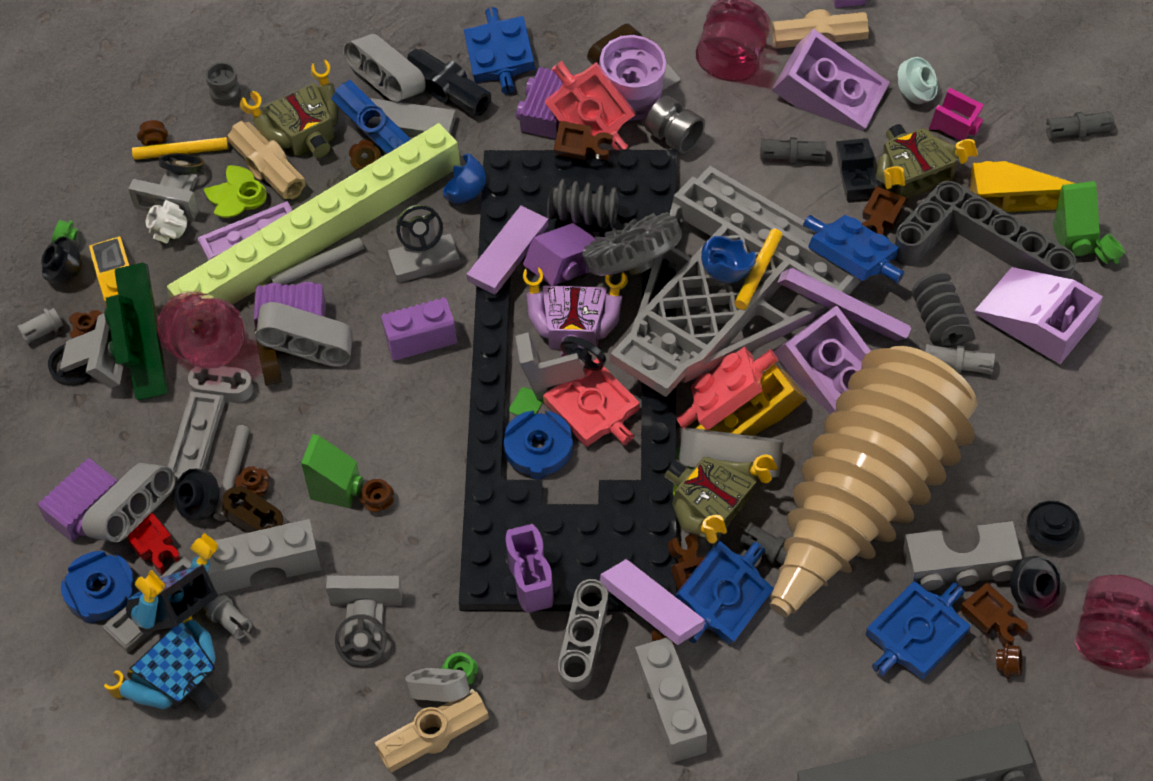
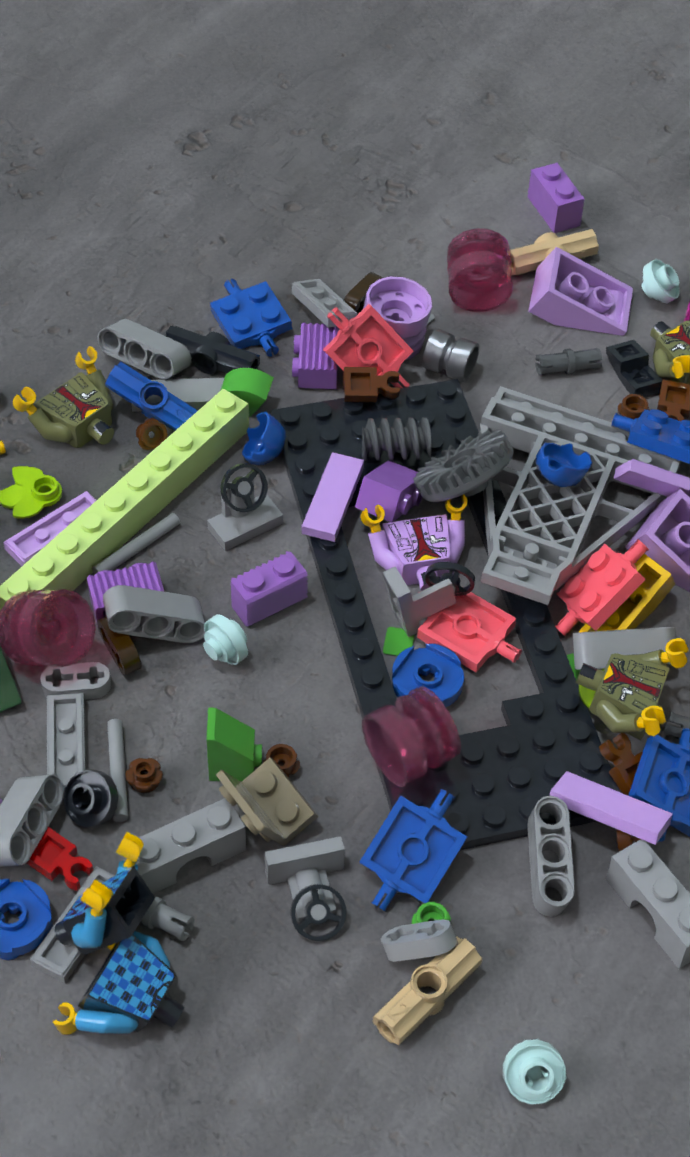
camera: 20 degrees left, 5 degrees down
(252, 513) = (156, 803): dark brown beam -> none
(266, 160) = (52, 455): tan piece -> none
(346, 532) = (269, 802): none -> dark tan bracket
(361, 371) = (225, 640): none -> light aqua plate
(461, 602) = (413, 849): none -> blue plate
(466, 124) = (249, 386): none -> bright green brick
(488, 497) = (411, 736): none -> clear pink wheel
(529, 568) = (478, 799): medium lavender brick -> none
(569, 45) = (321, 300): none -> light grey tile
(756, 273) = (591, 476): yellow bar -> none
(838, 205) = (633, 406): none -> reddish brown plate

